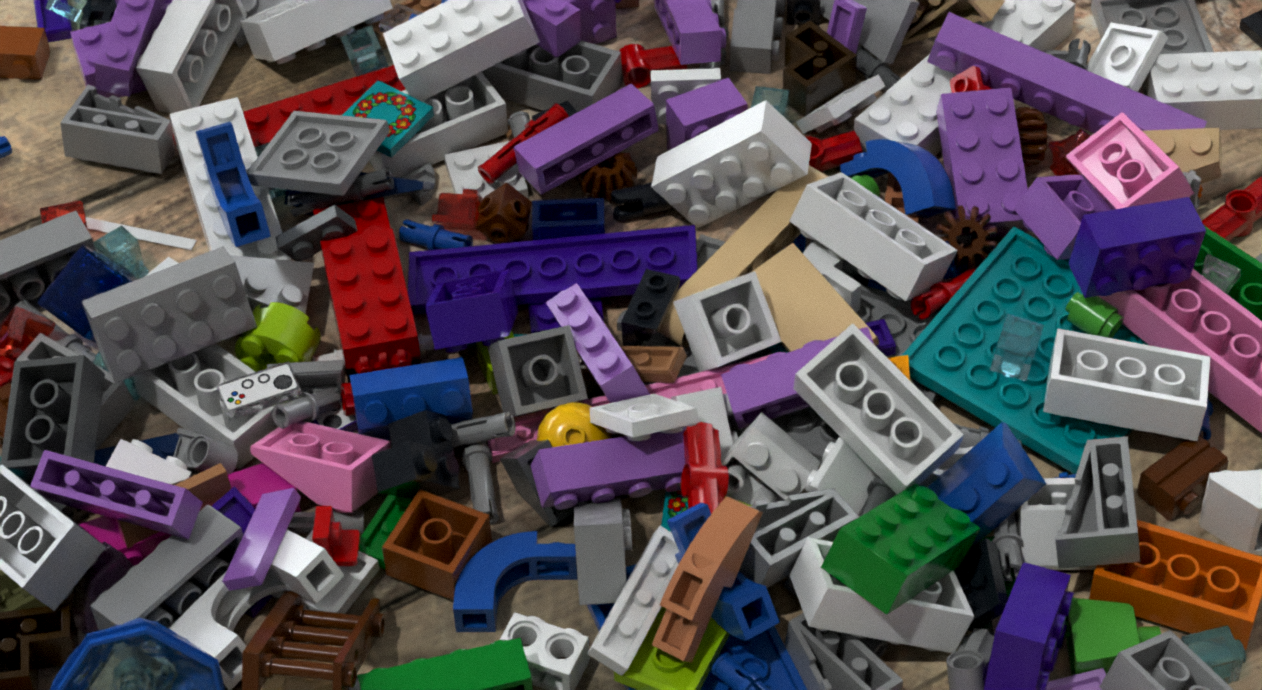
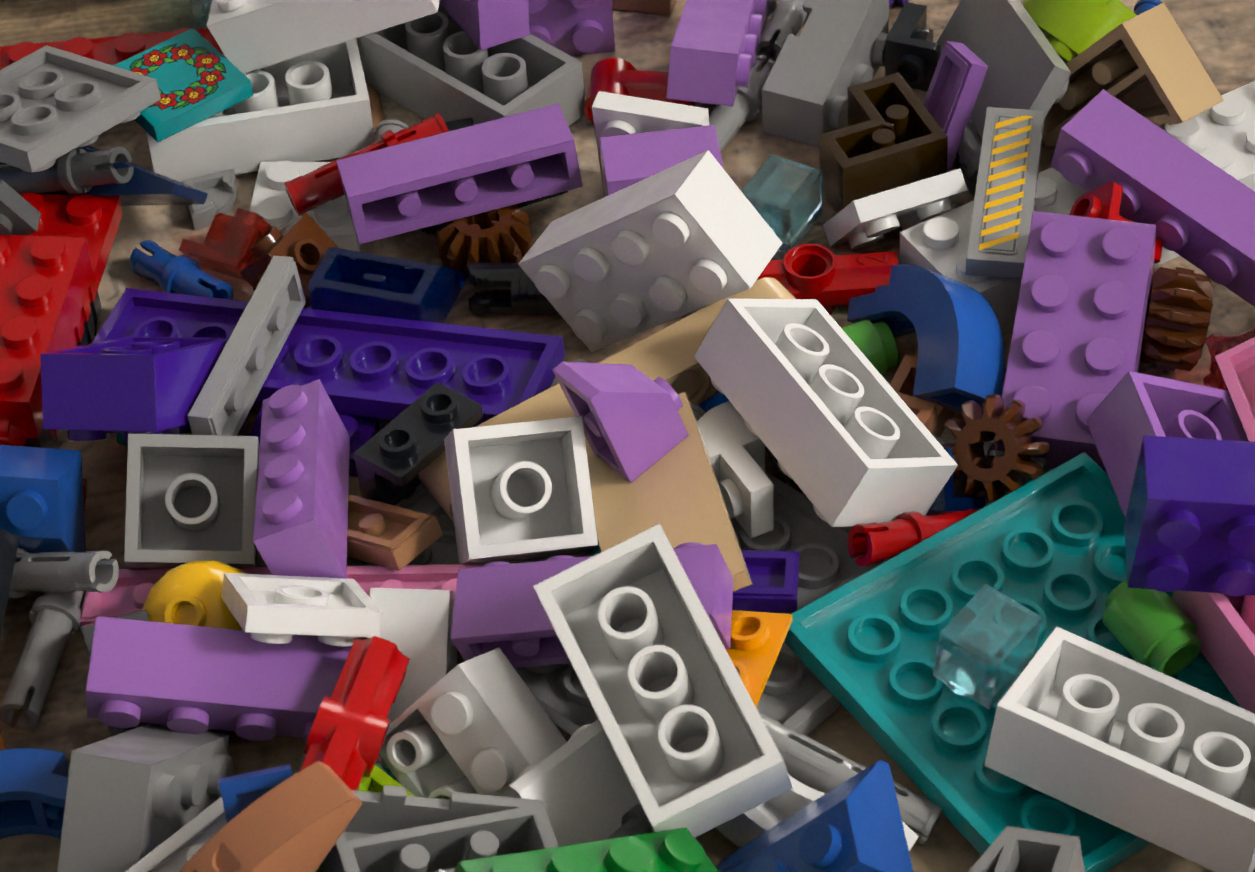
camera: 20 degrees right, 5 degrees down
(521, 275) = (250, 351): none -> light grey tile
(776, 263) = (623, 413): none -> medium lavender slope
(908, 83) = (1005, 192): none -> tile

